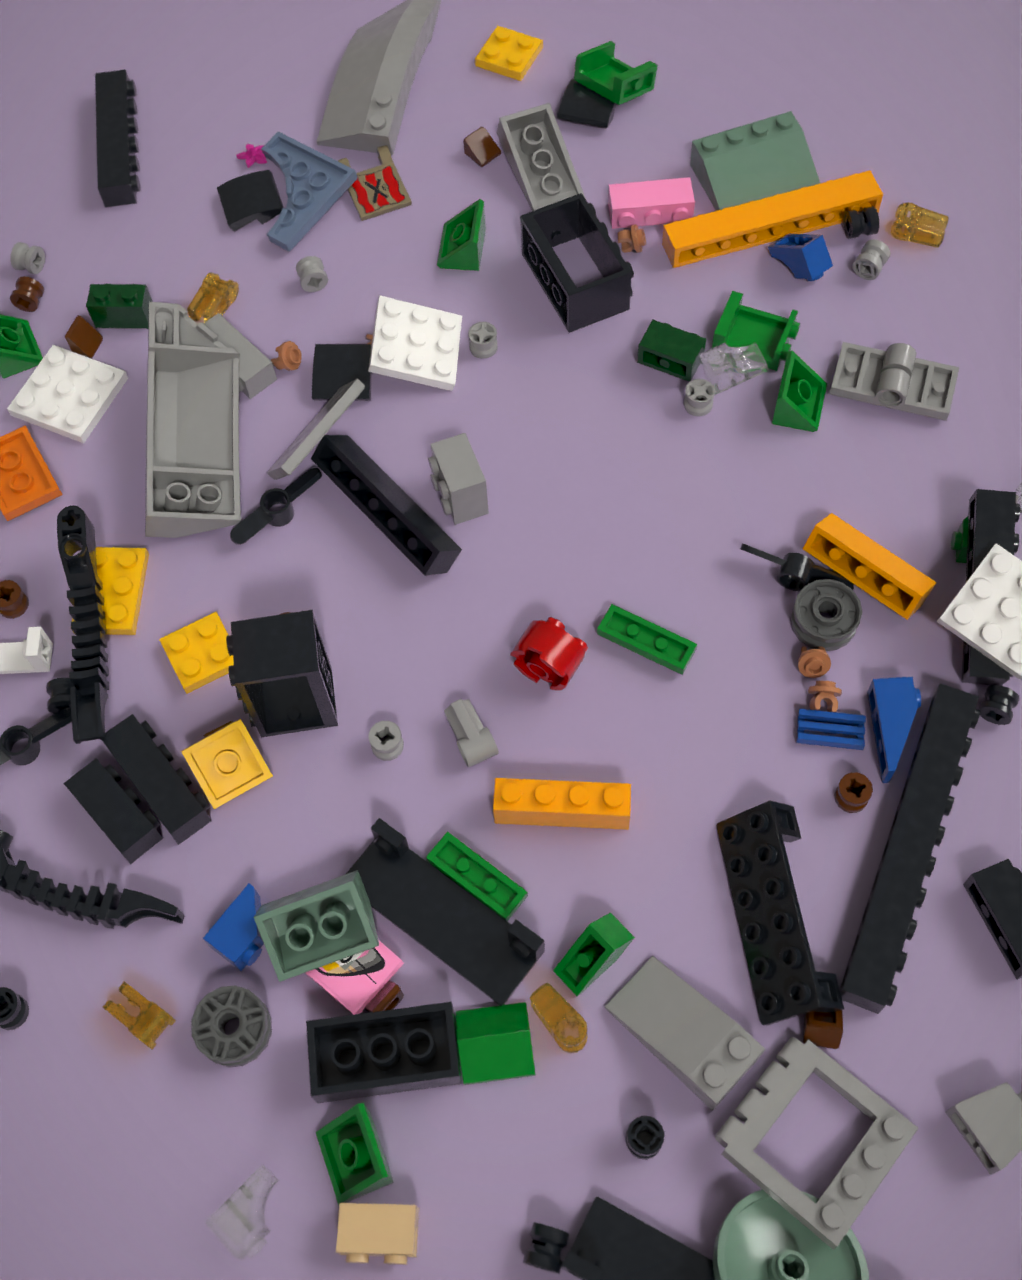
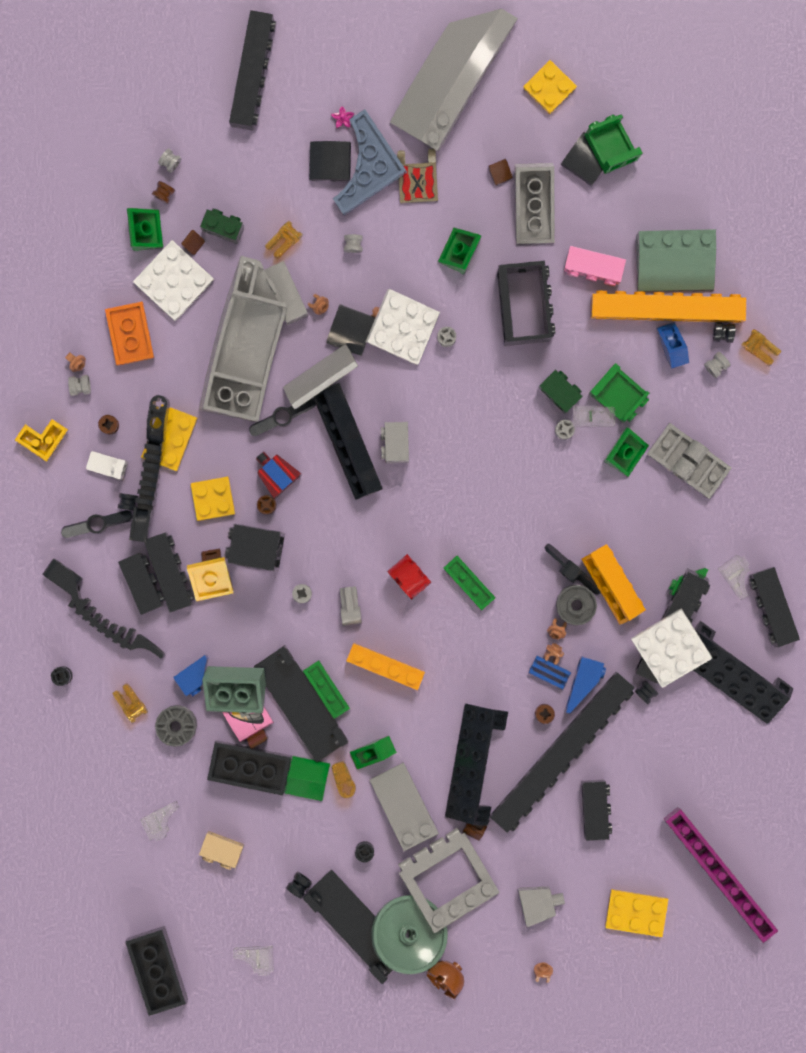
camera: 10 degrees right, 25 degrees up
(292, 581) = (276, 473): none -> torso
(353, 1154) = (220, 810): green slope -> none
(632, 239) = (572, 291): nougat plate -> none

